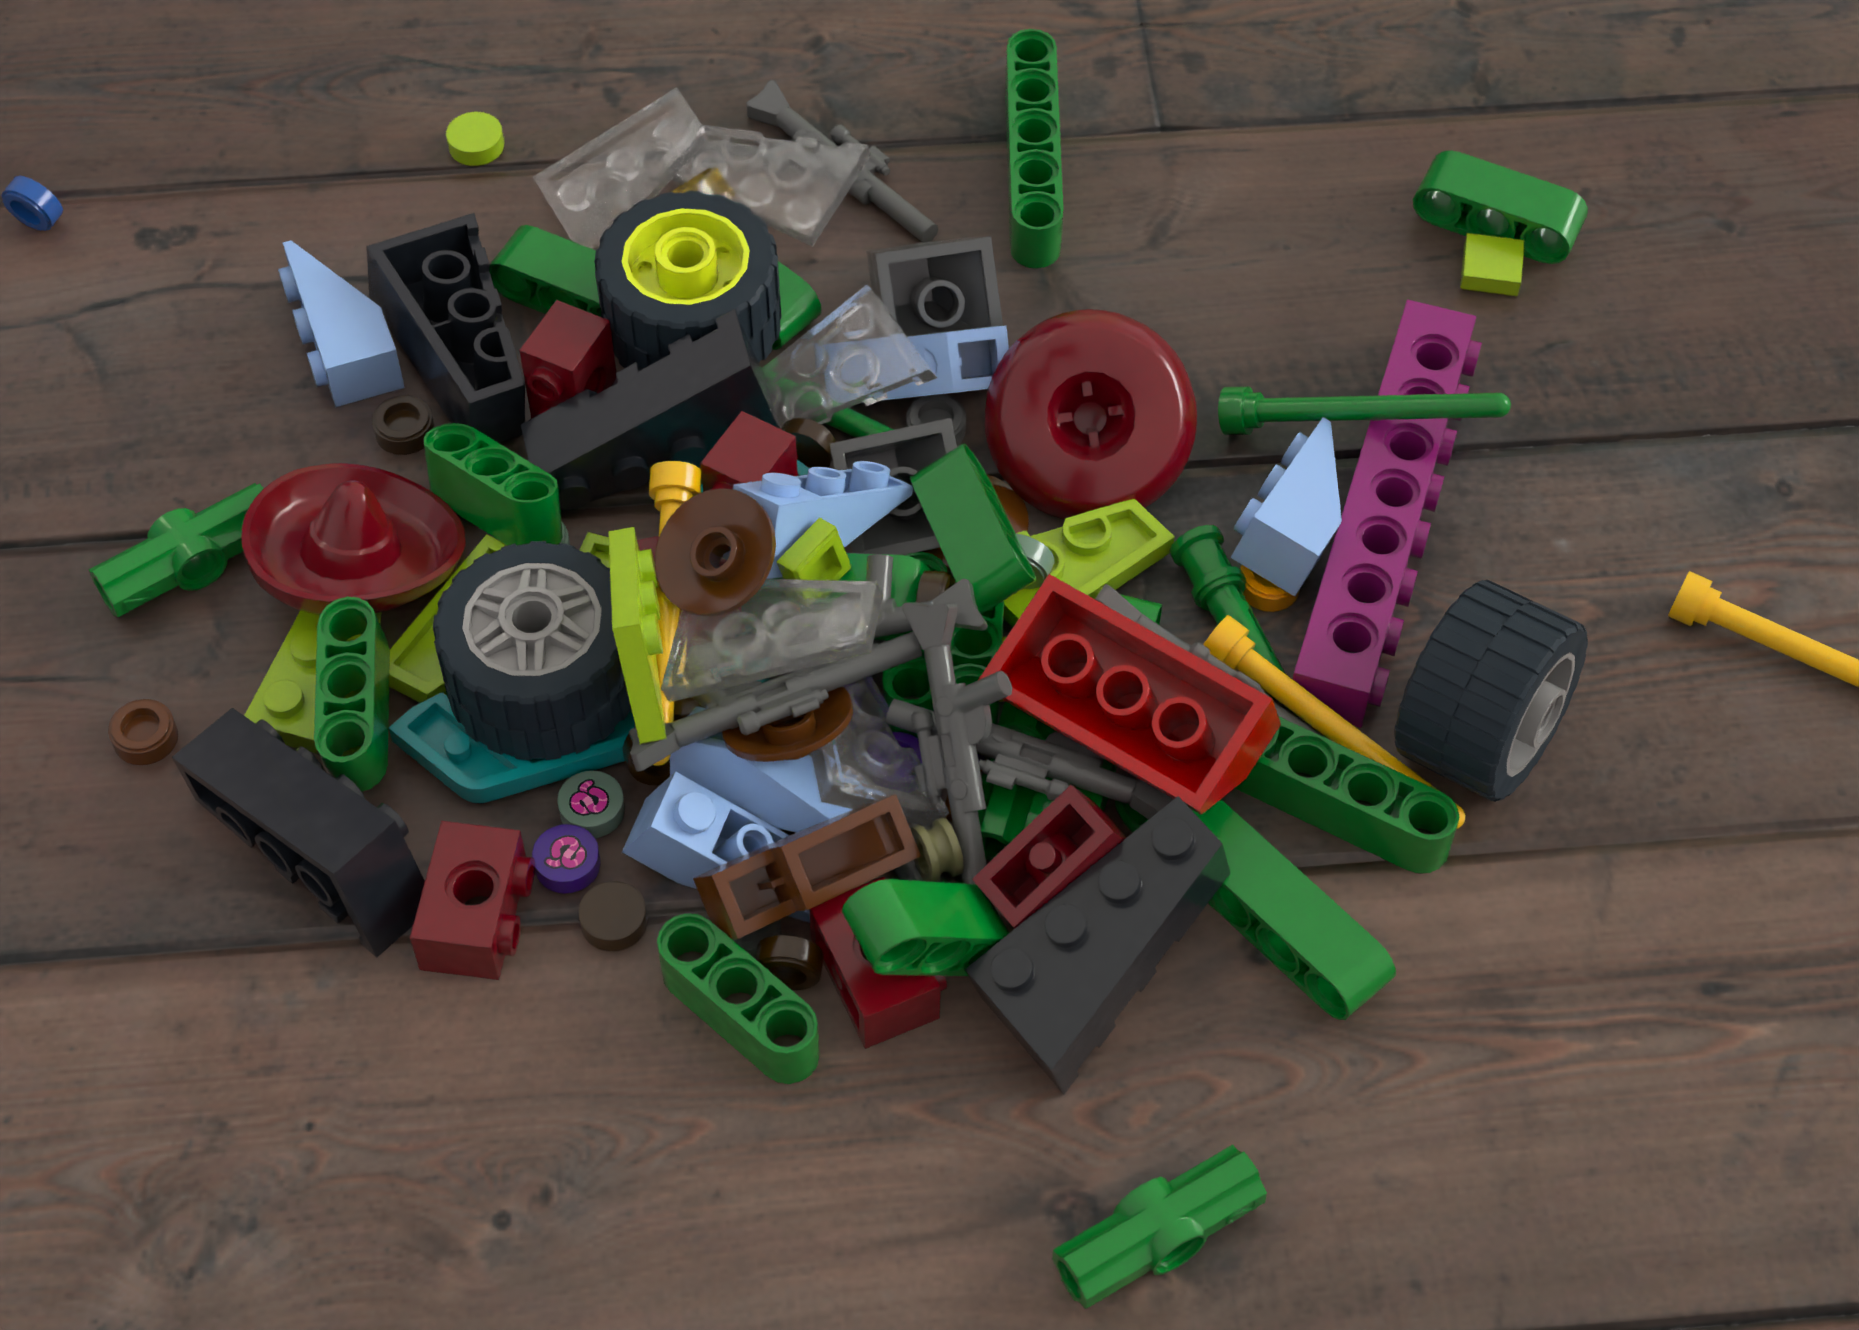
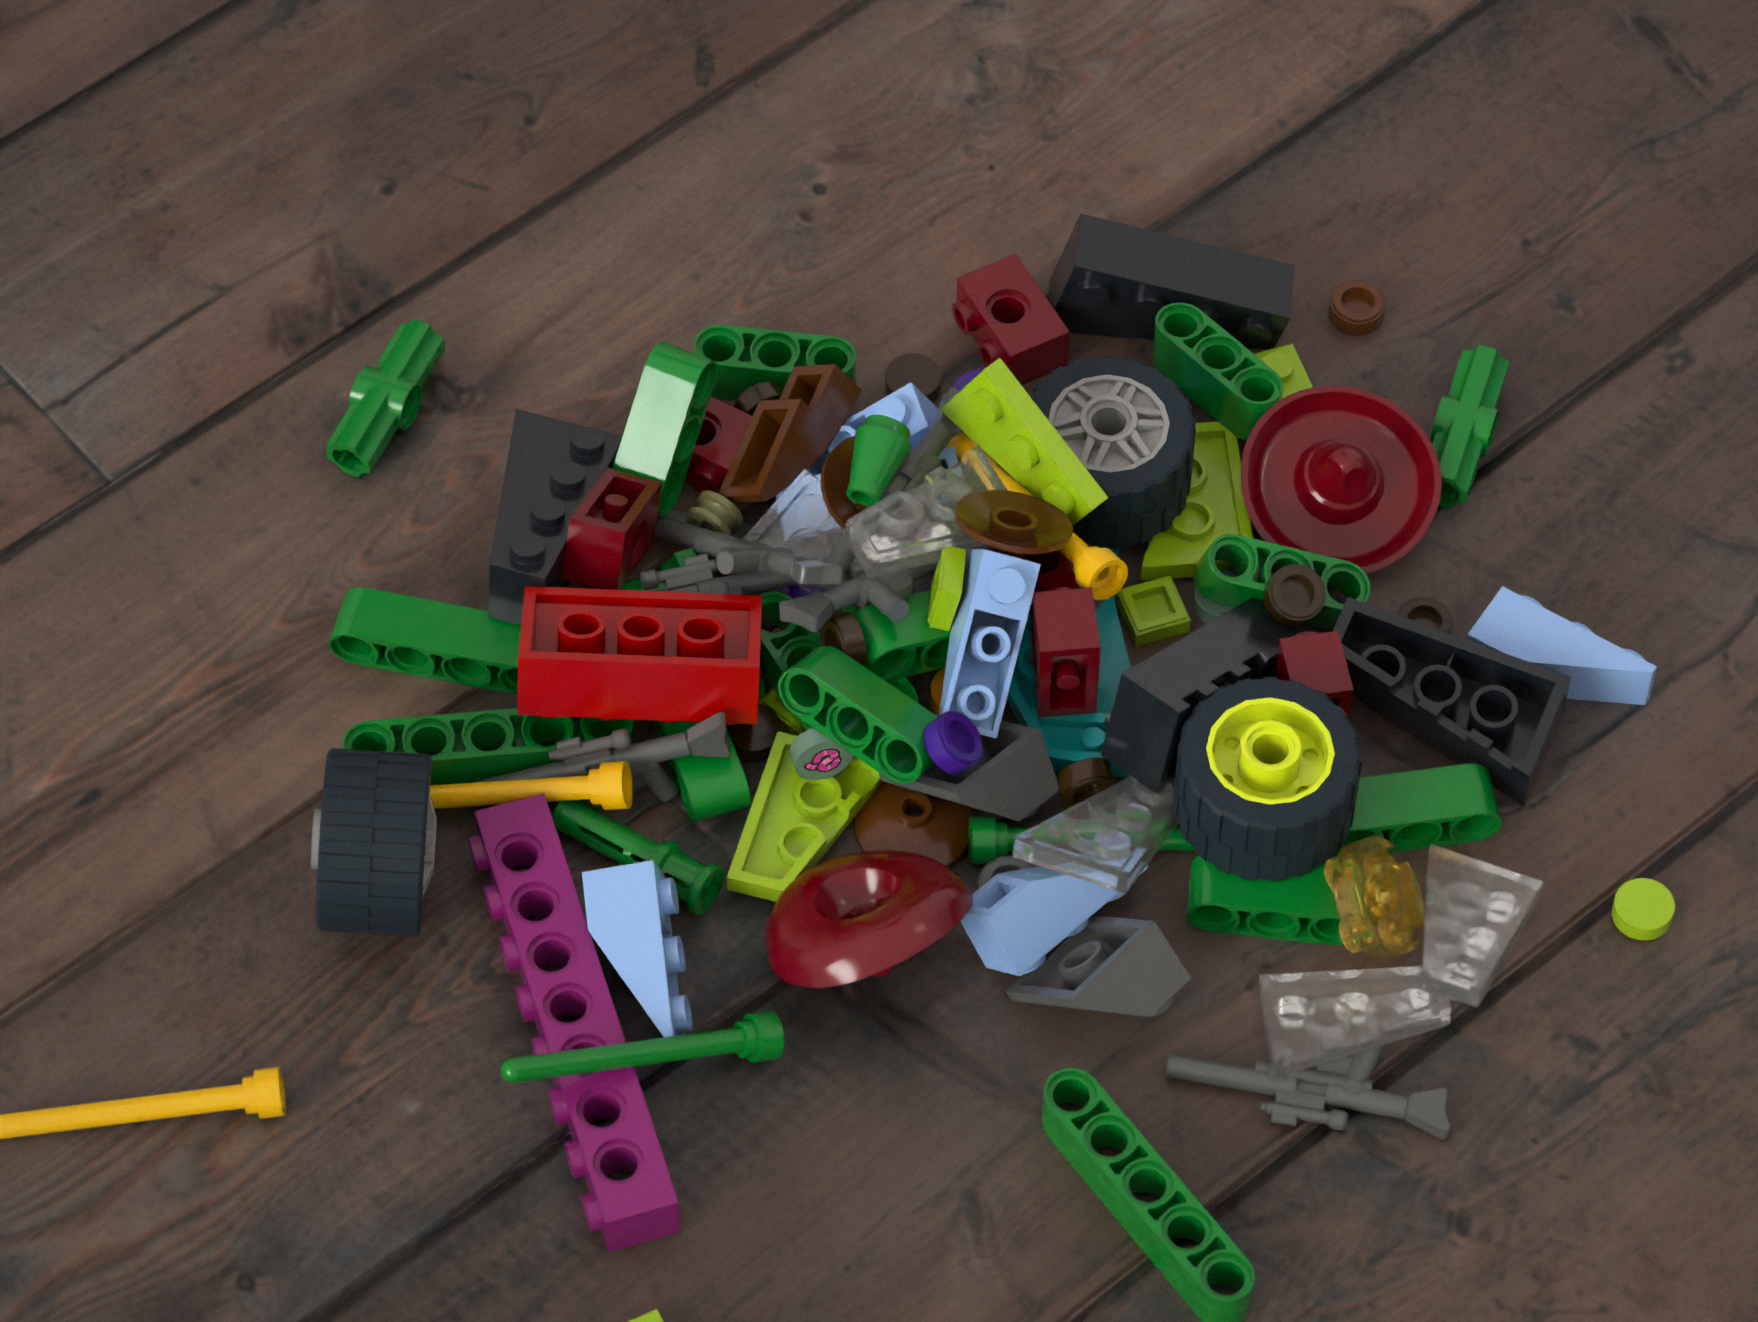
camera: 145 degrees right, 0 degrees up
(506, 438) = (1294, 595): none -> dark brown tile
(780, 686) = (877, 456): none -> green cone
(920, 451) = (953, 742): none -> dark purple tile

